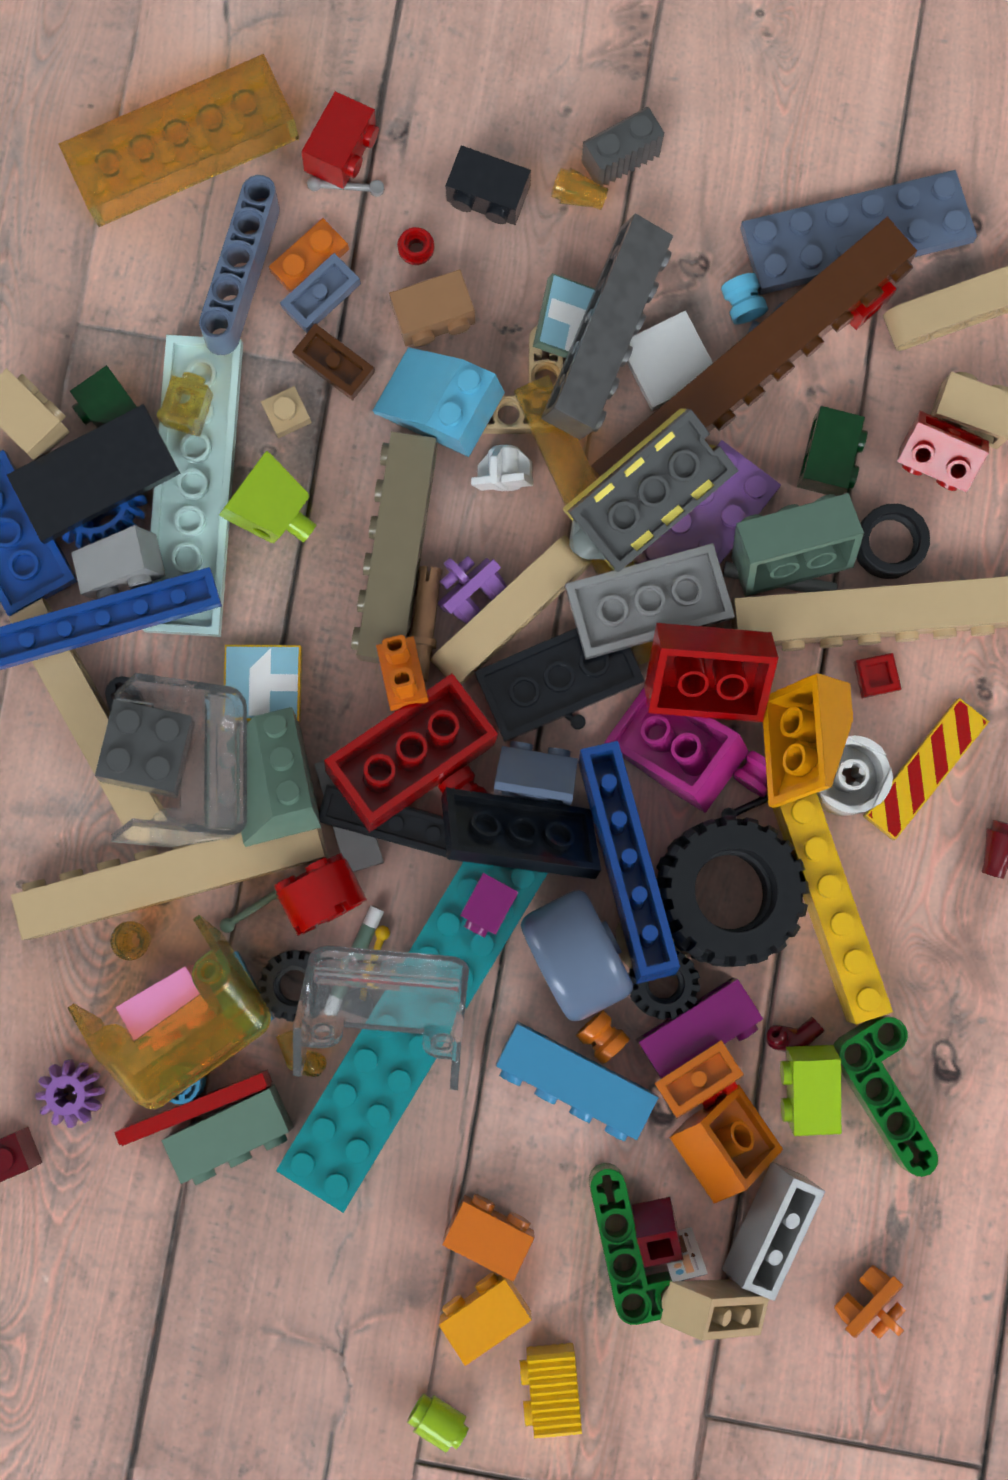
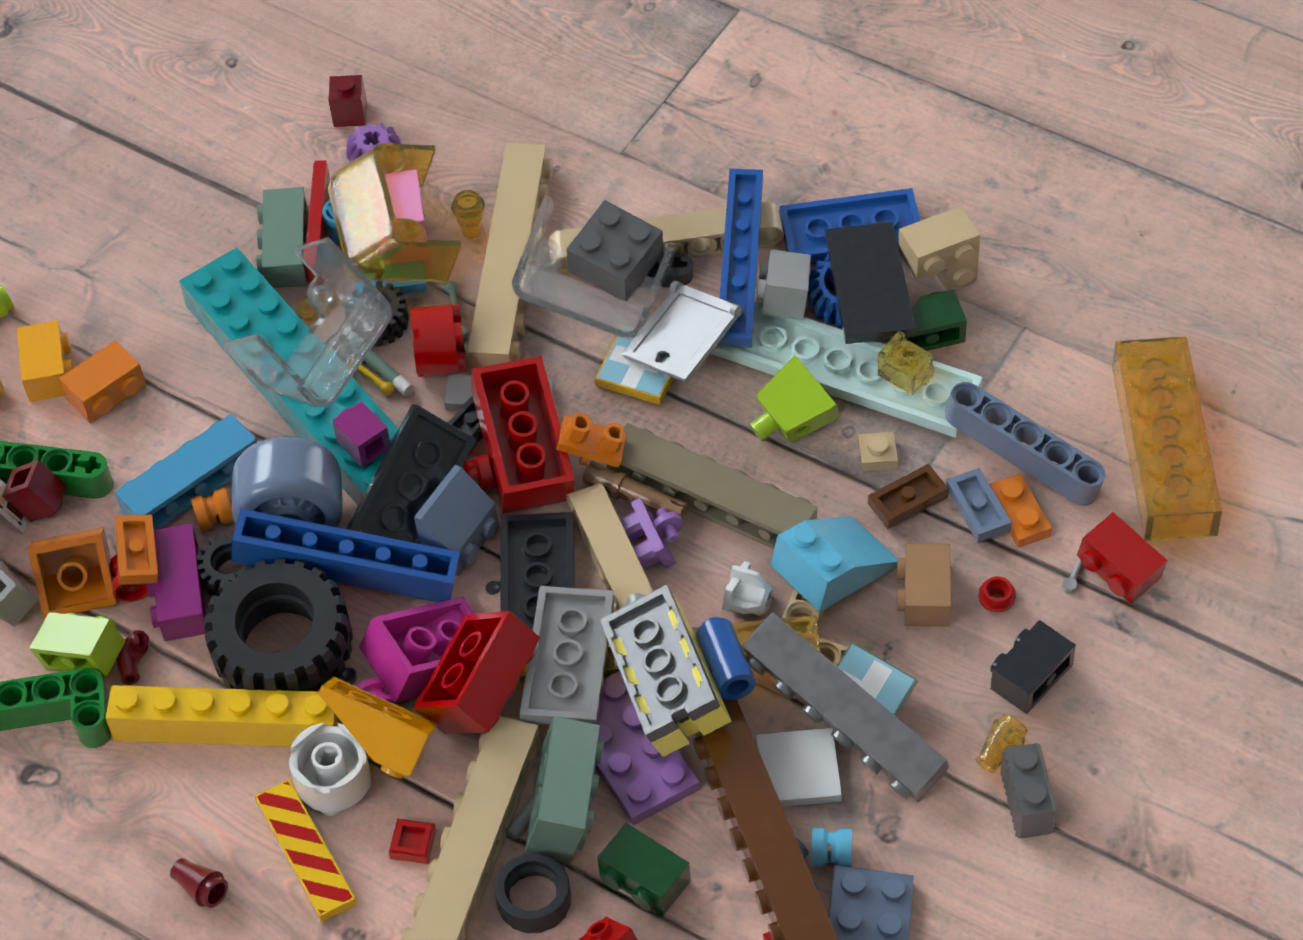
camera: 115 degrees right, 30 degrees down
(215, 639) = (684, 327): none -> container
(278, 779) = (565, 344): sand green slope -> none
(608, 443) = (725, 658): none -> blue brick

